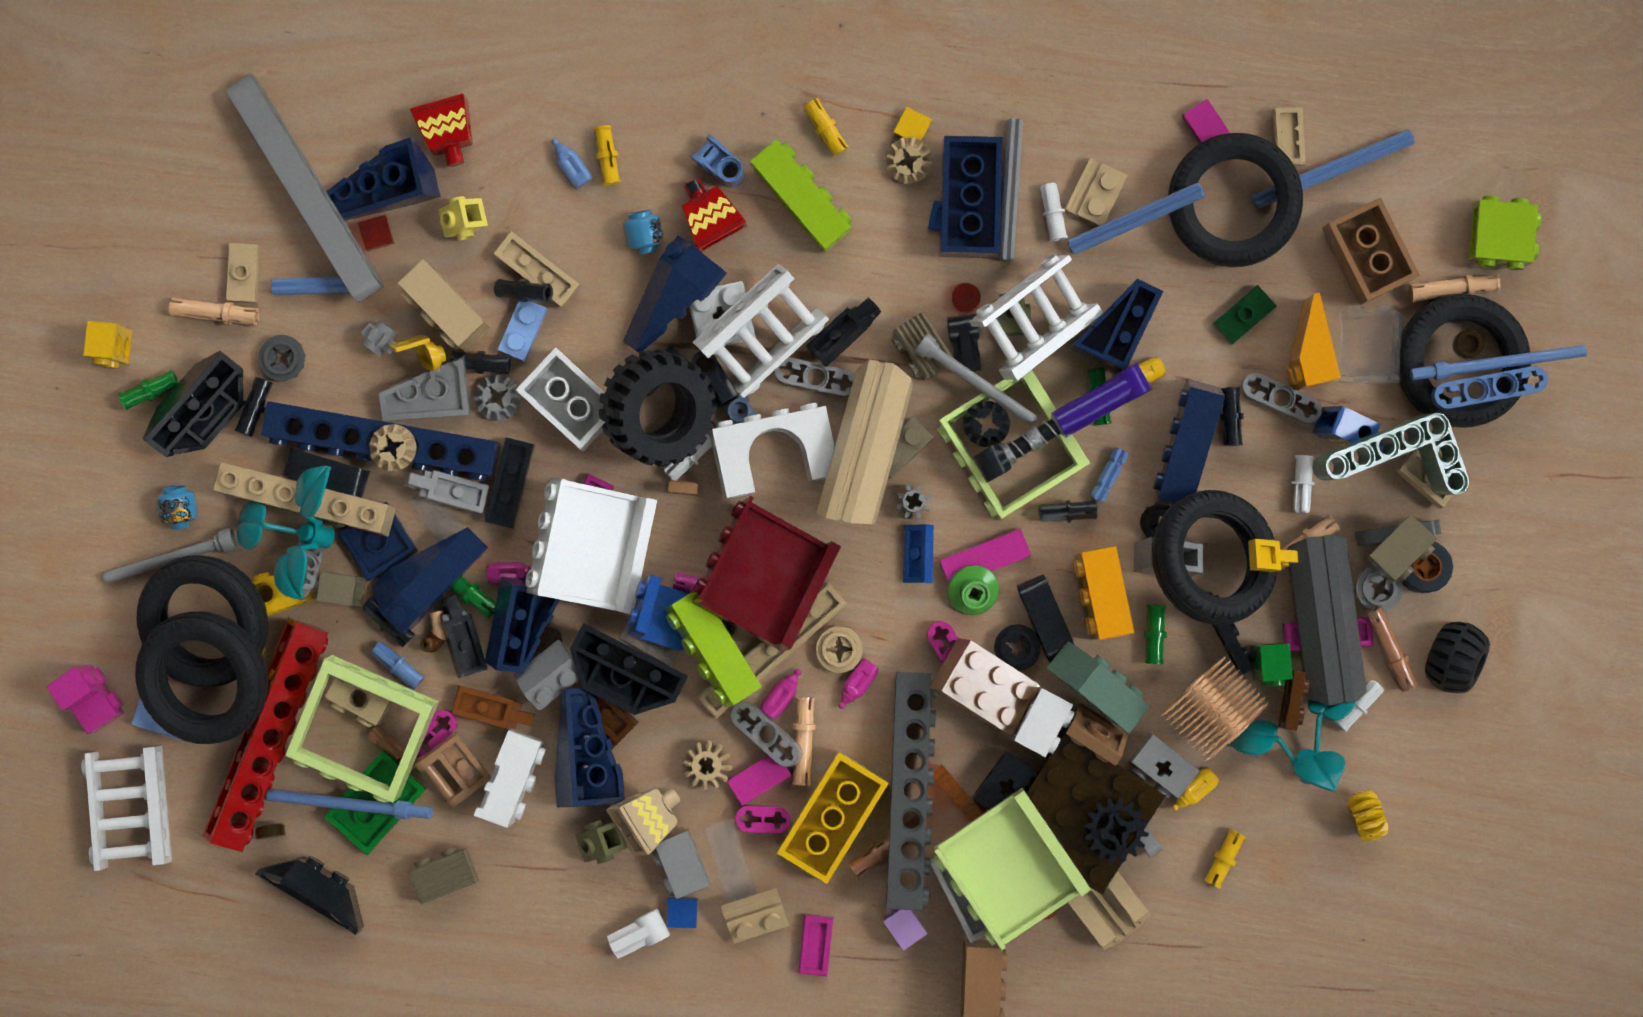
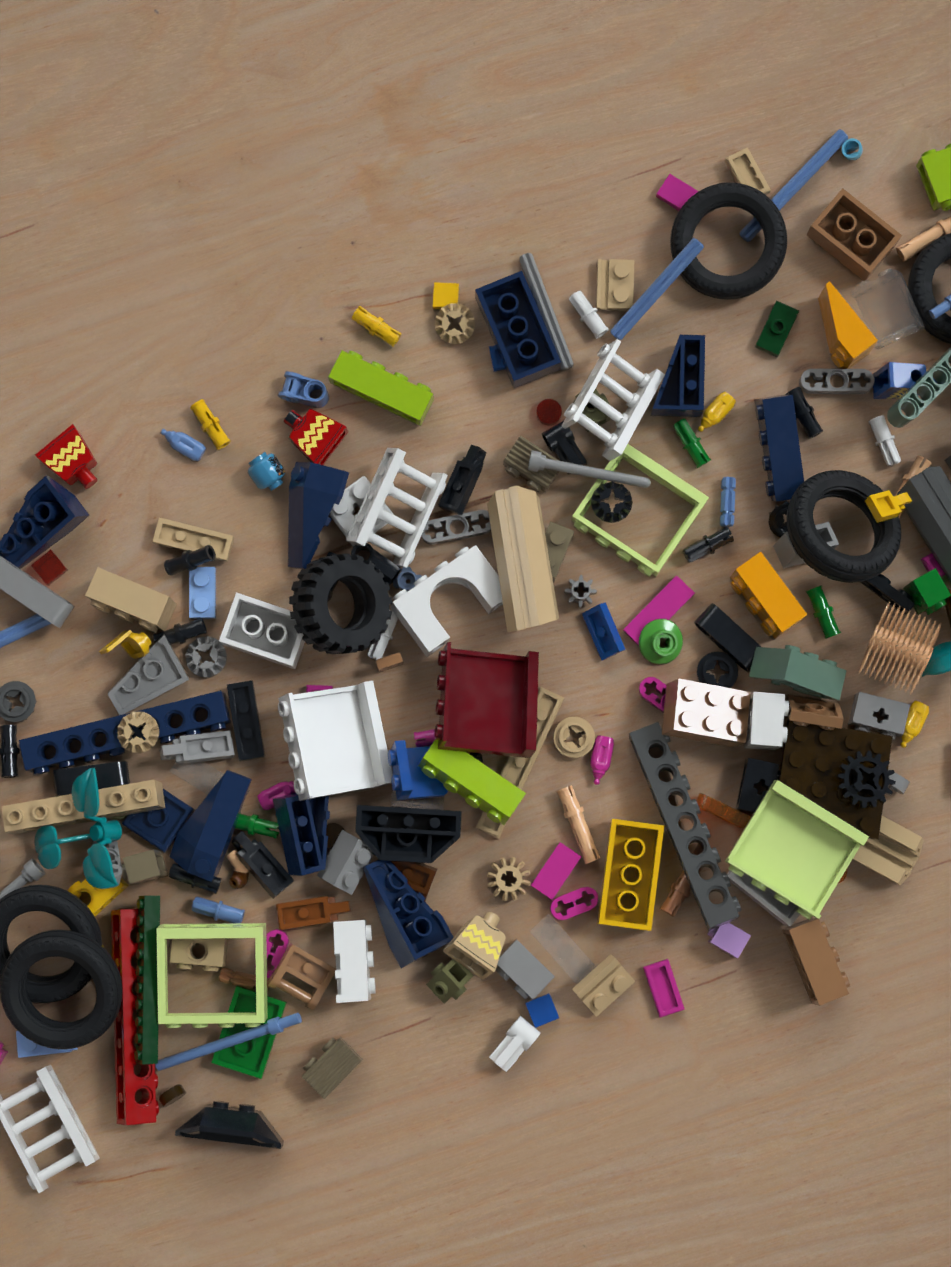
camera: 25 degrees left, 5 degrees down
(289, 713) = (146, 986): none -> dark green piece
(378, 338) = (88, 650): light grey gear -> none
(462, 217) = (115, 523): light yellow brick -> none
(776, 754) = (526, 833): light grey beam -> none
(780, 695) = (543, 795): dark pink piece -> none
(1065, 421) = (674, 471): piece -> none
(1412, 152) = (852, 145): none -> medium azure hinge

